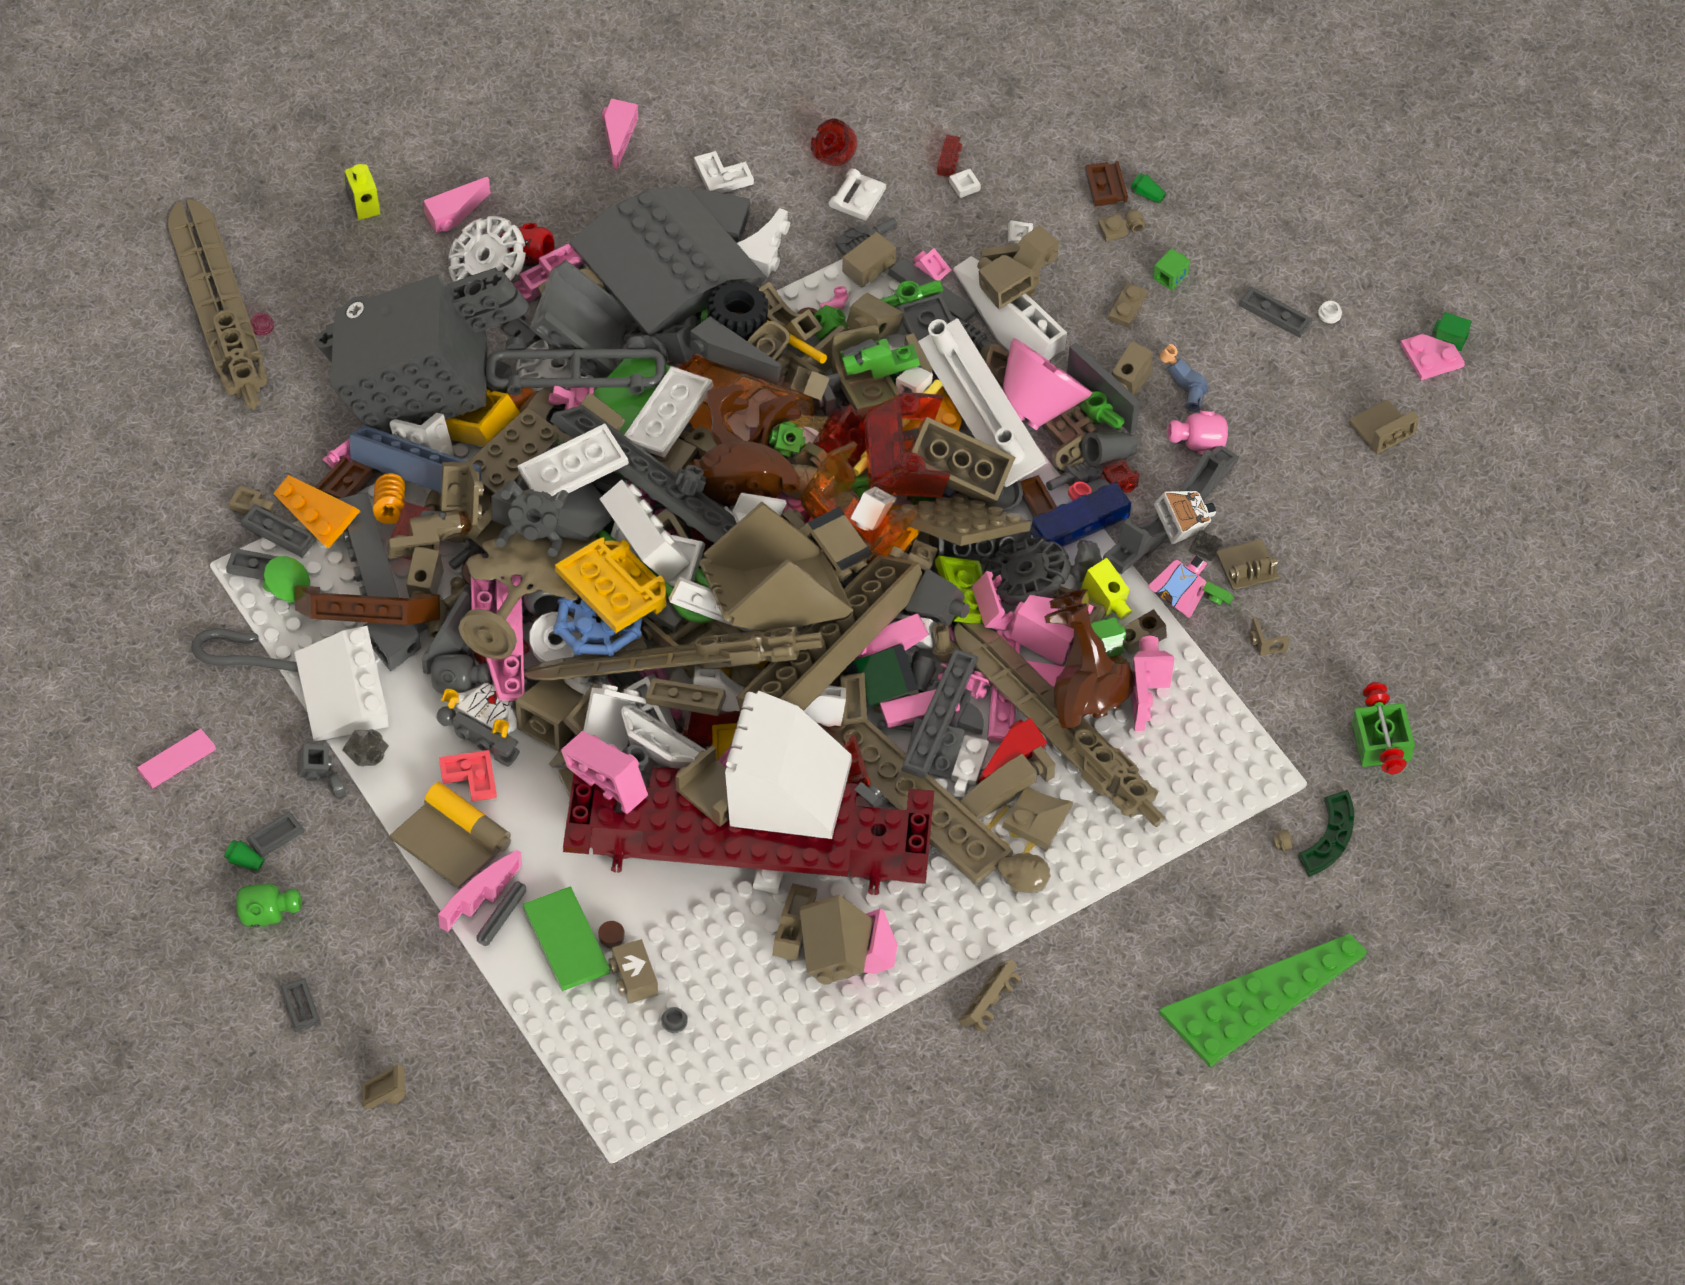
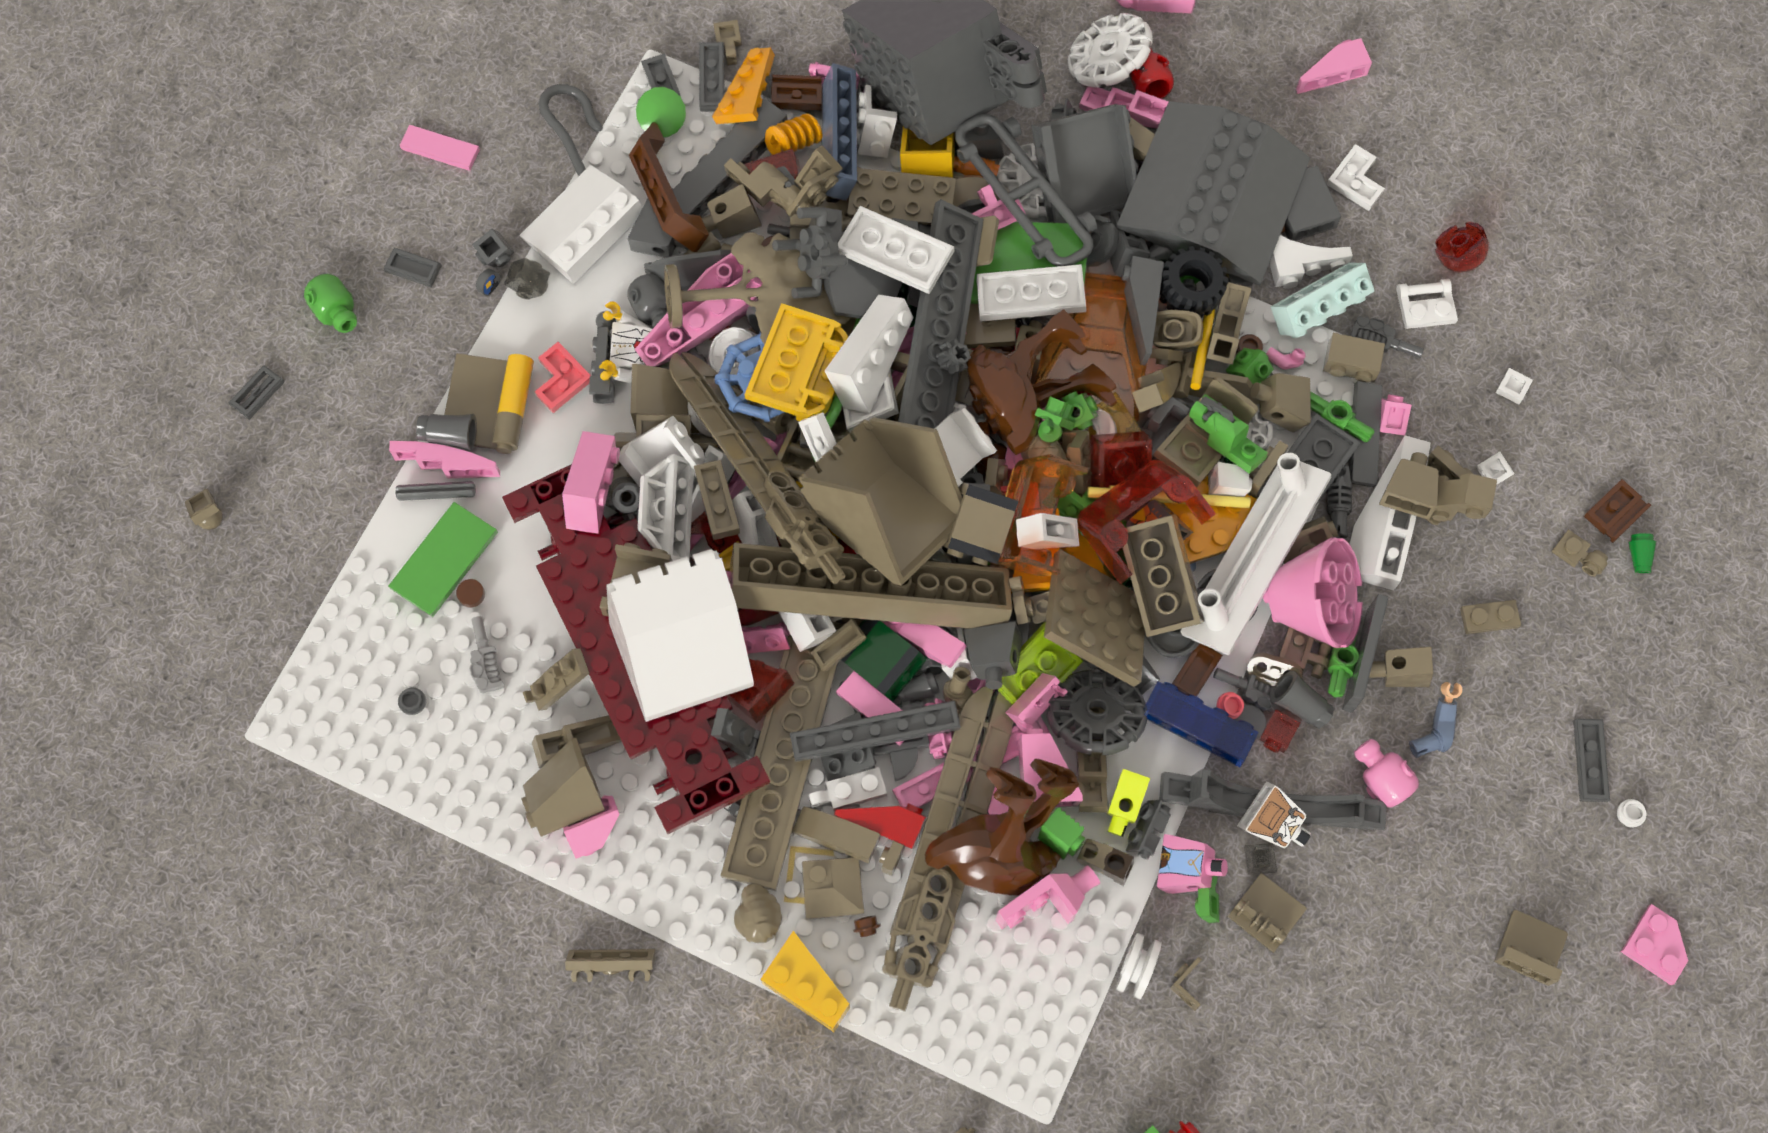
camera: 60 degrees right, 15 degrees up
(243, 856) = (372, 256): green cone -> none
(461, 868) = (448, 430): none -> dark grey plant
(634, 971) = (438, 636): dark tan brick -> none
(684, 958) = (482, 661): none -> light grey piece
(741, 897) = (557, 680): none -> dark tan plate
(791, 448) = (1056, 416): none -> bright green hips
(808, 249) = (1322, 299): none -> light aqua brick
(949, 156) = (1535, 353): clear red piece -> none
(1082, 809) = (866, 926): none -> reddish brown plate
(1087, 556) = (1147, 760): dark grey hair -> none
(1100, 868) = (805, 984): none -> yellow wedge
(1137, 600) = (1152, 817): none -> dark grey hinge
(1171, 269) = (1562, 631): bright green brick -> none
(1234, 655) = (1138, 966): none -> white wheel
(1452, 330) = (1702, 949): green brick -> none

